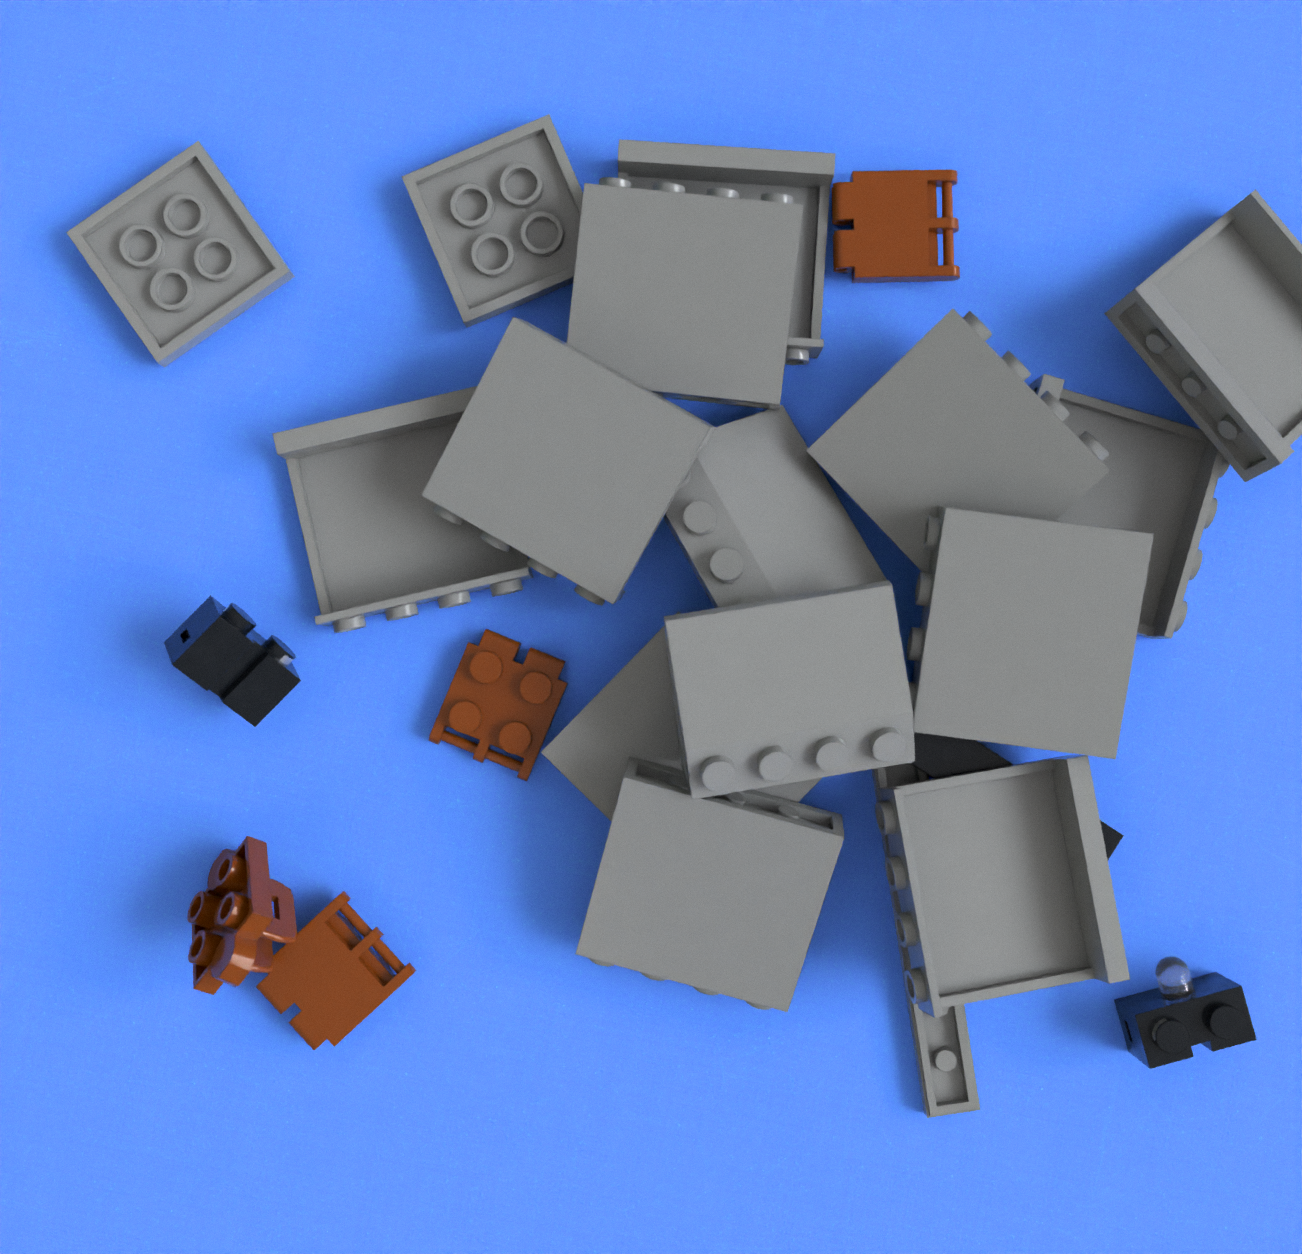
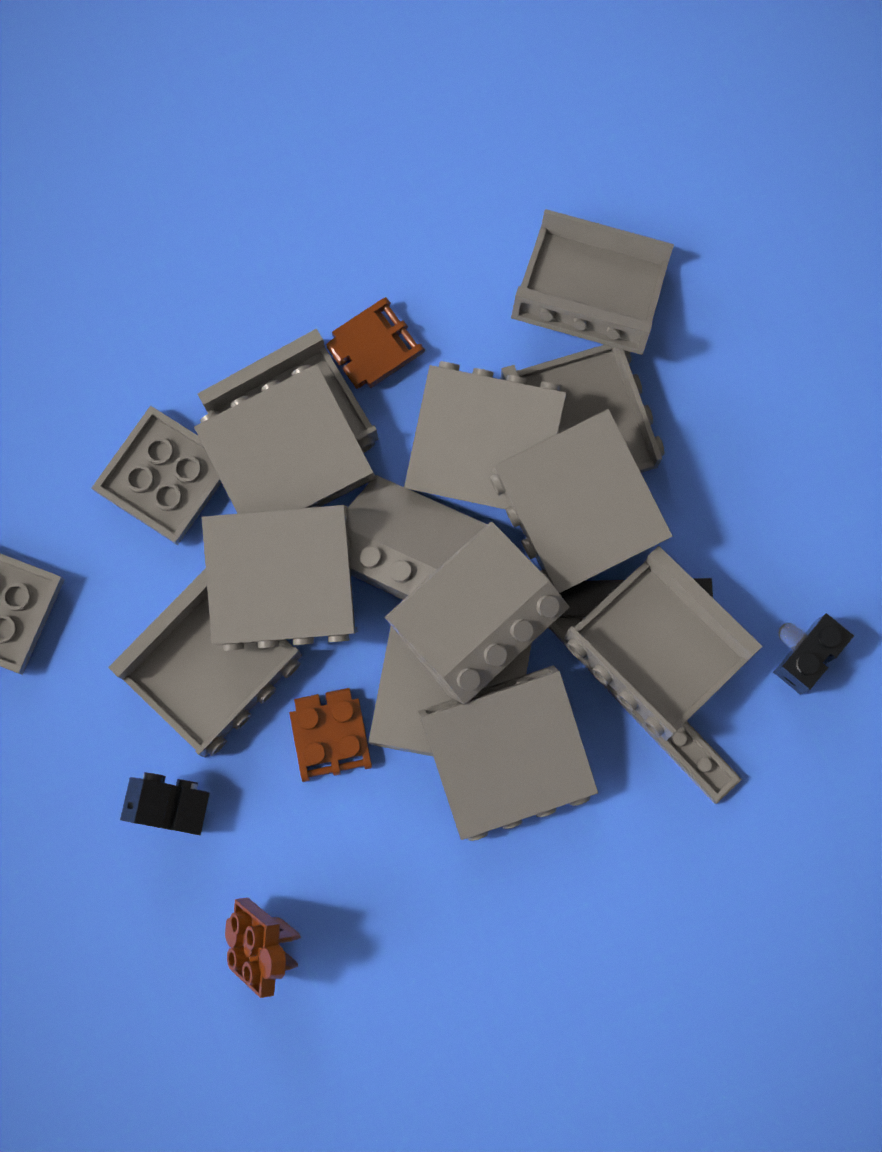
camera: 30 degrees left, 10 degrees down
(333, 974) = (334, 949): dark orange plate -> none

